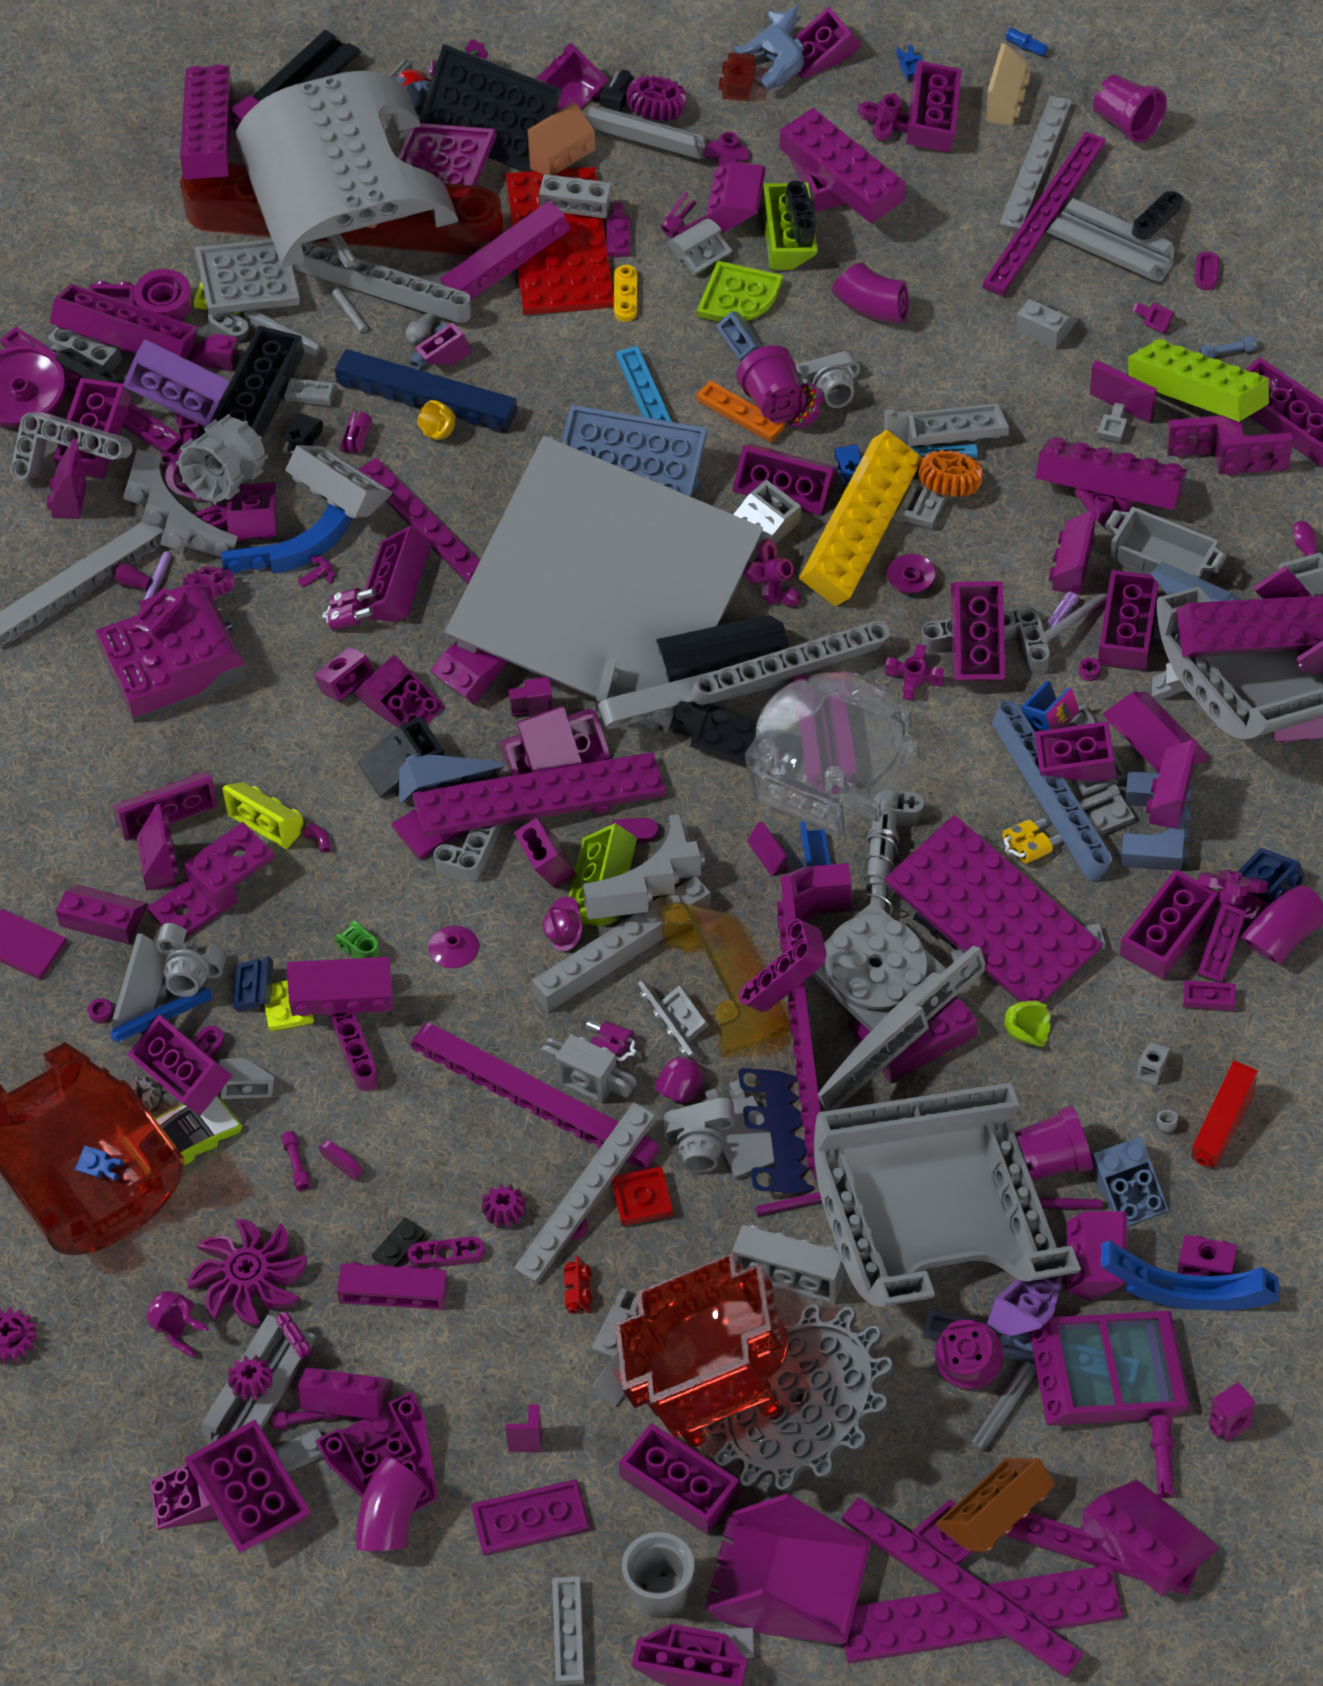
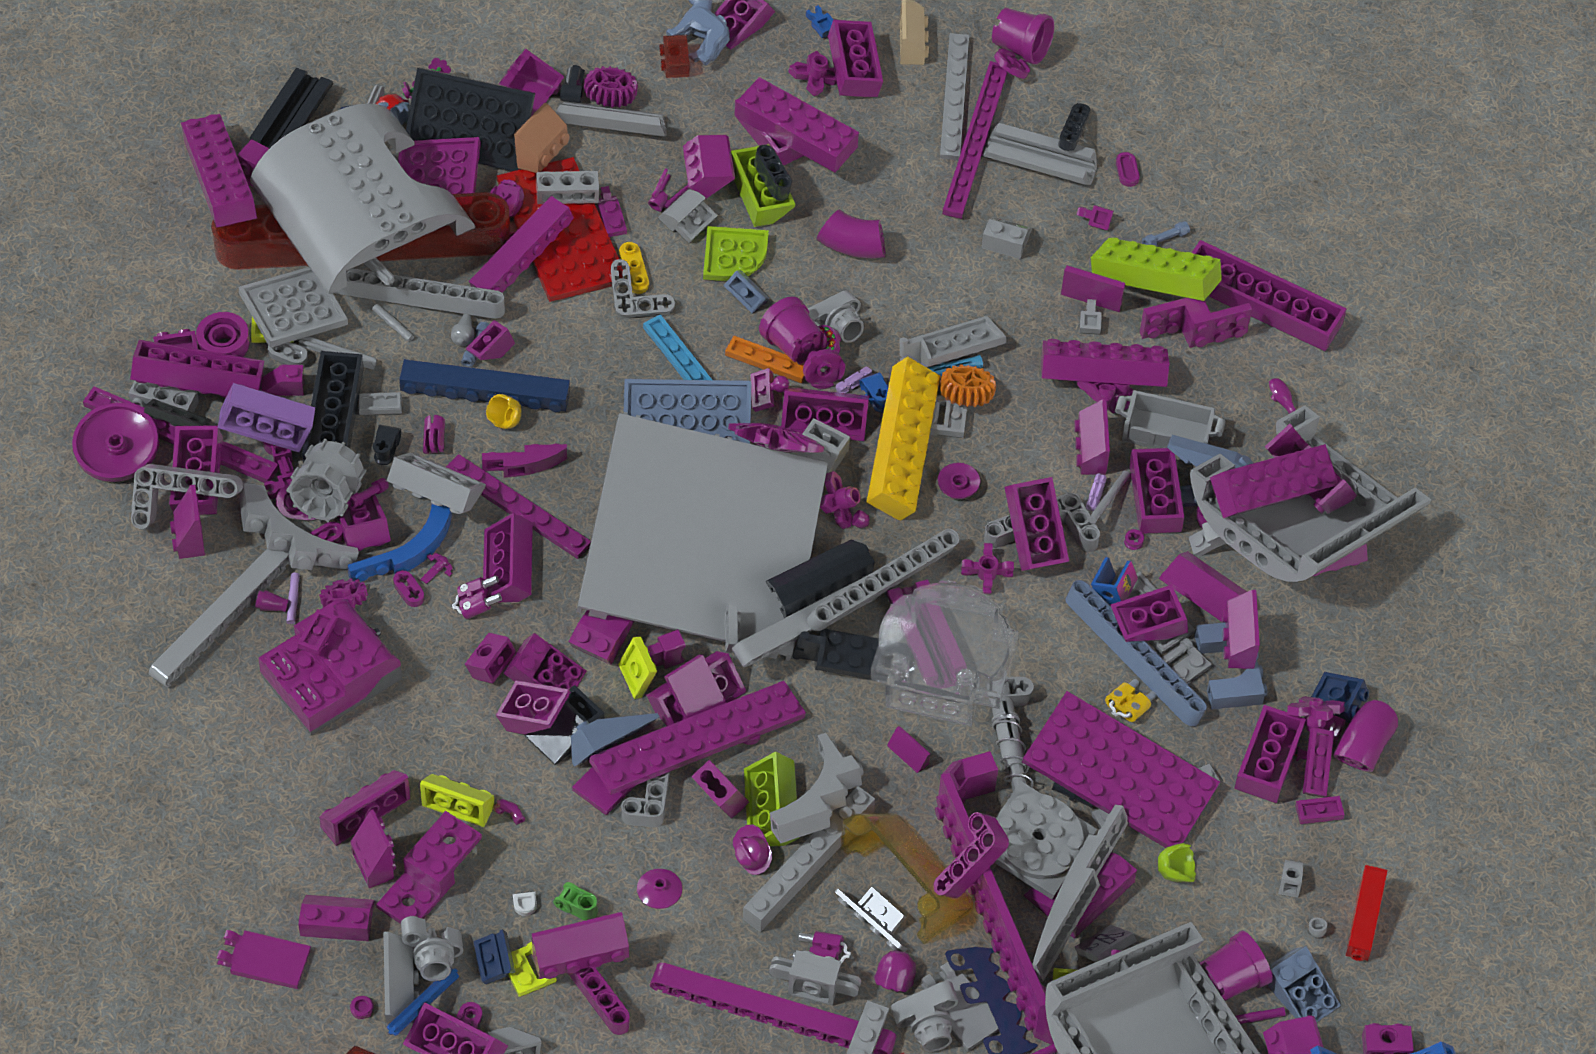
camera: 20 degrees left, 0 degrees up
(251, 485) = (376, 487): none -> magenta bar
(286, 587) = (404, 591): none -> magenta beam
(305, 935) = (525, 903): none -> white tile
(366, 730) = (531, 707): none -> magenta slope
(452, 476) = (531, 461): none -> magenta slope
(496, 710) = (637, 667): none -> neon yellow plate
(511, 196) = (511, 193): none -> magenta tile
(612, 329) = (632, 303): none -> light grey beam
(643, 828) = (794, 750): magenta tile -> none
(712, 491) = (776, 437): none -> magenta piece
(725, 440) = (763, 388): none -> magenta plate
(727, 149) = (685, 126): magenta plate -> none
(793, 418) = (819, 359): none -> magenta plate
(814, 846) = (948, 742): blue panel -> none
(827, 450) = (853, 380): none -> lavender axle
(923, 1087) = (1100, 944): none -> flat silver tile
(1106, 136) = (1007, 61): none -> magenta tile

